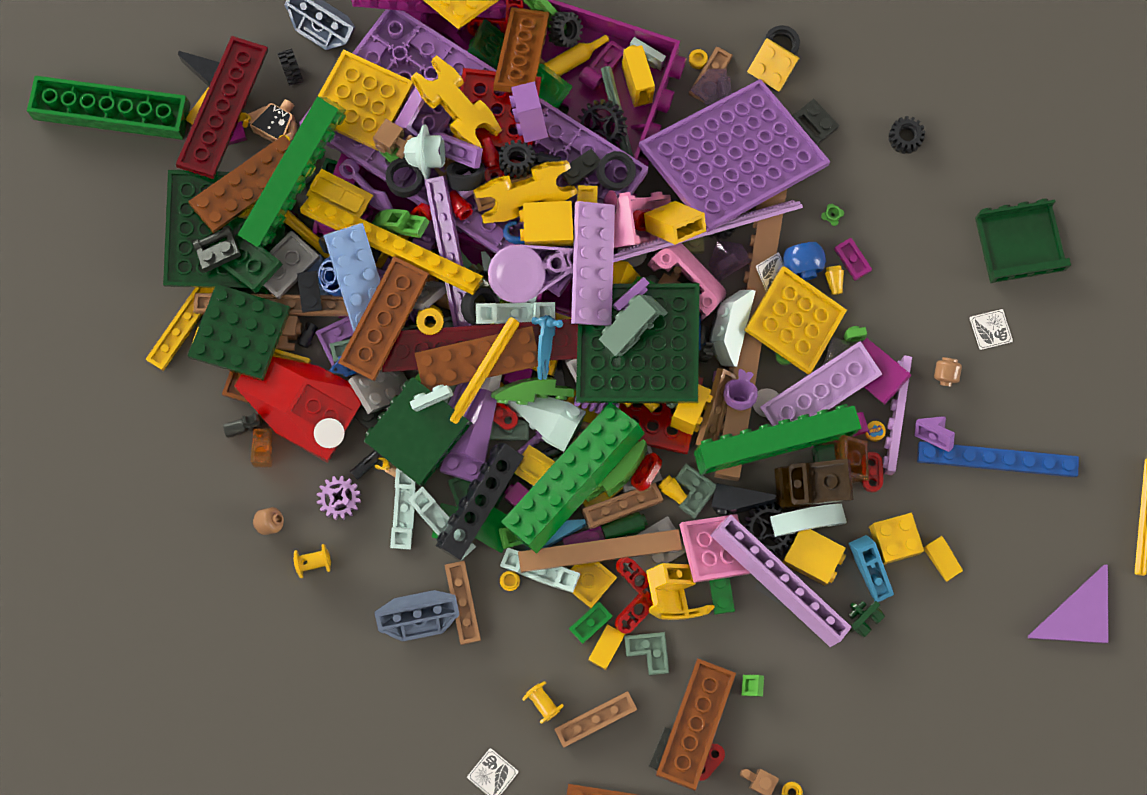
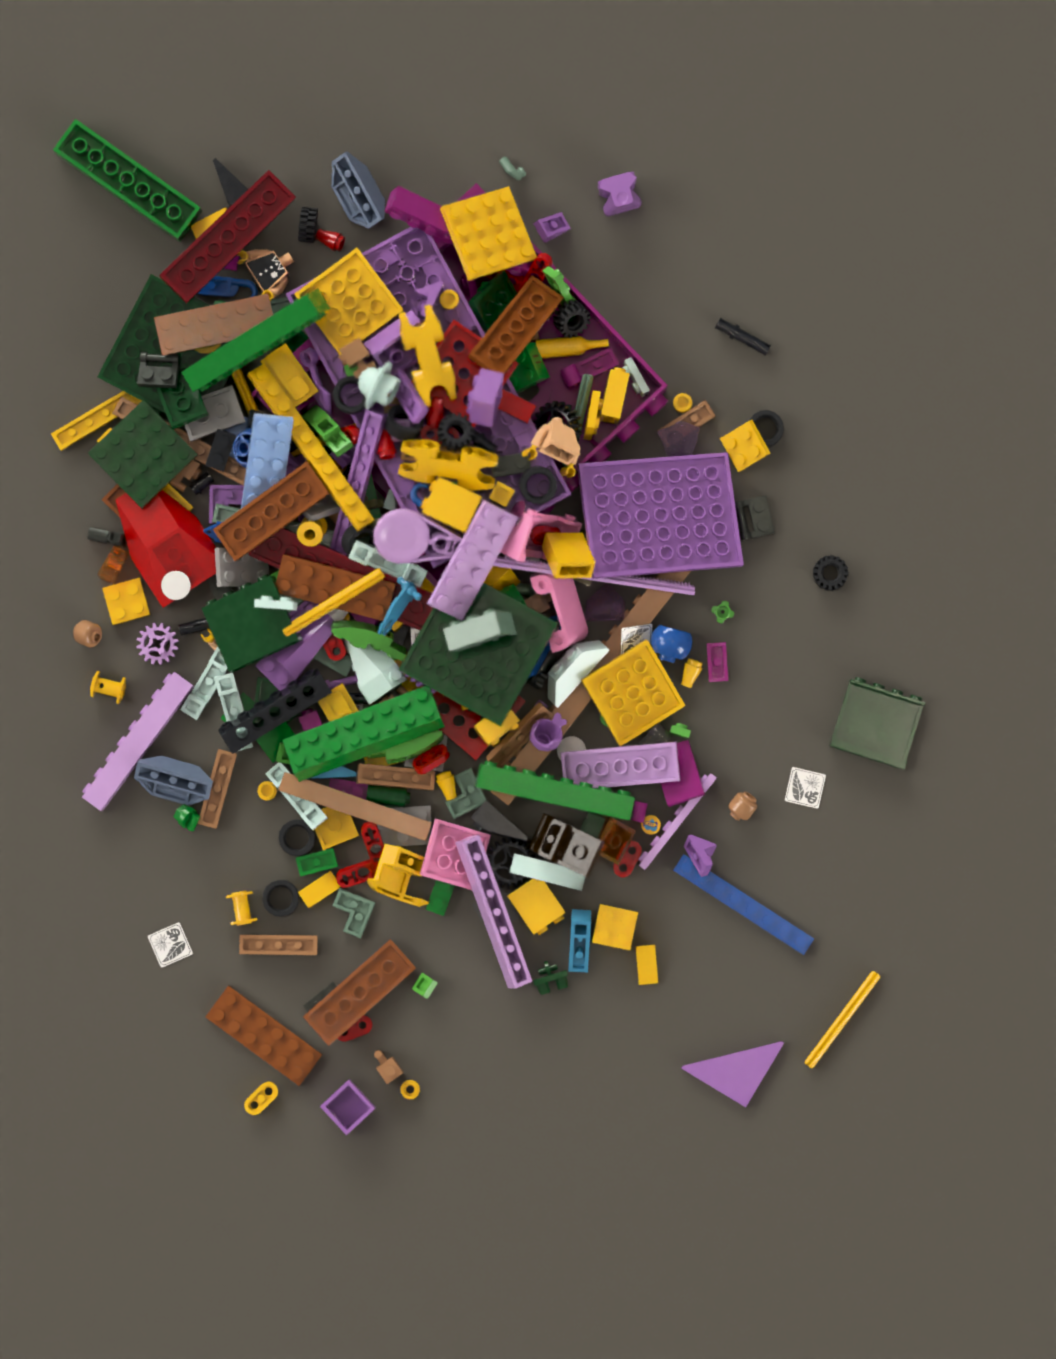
camera: 30 degrees right, 10 degrees up
(237, 156) = (227, 287): none -> blue plate
(290, 475) = (126, 601): none -> yellow plate
(317, 72) = (331, 239): none -> red cone
(365, 597) = (138, 741): none -> lavender brick
(425, 57) = (430, 293): none -> medium lavender slope
(447, 644) = (187, 817): none -> green piece
(450, 55) = (449, 299): none -> yellow tile
(559, 116) = (516, 406): none -> red tile
(560, 594) = (296, 852): none -> black tyre
(574, 658) = (266, 896): none -> black tyre
(613, 129) = (556, 442): none -> light nougat torso
(627, 98) = (593, 418): none -> yellow plate
(638, 288) = (500, 601): medium lavender plate -> none

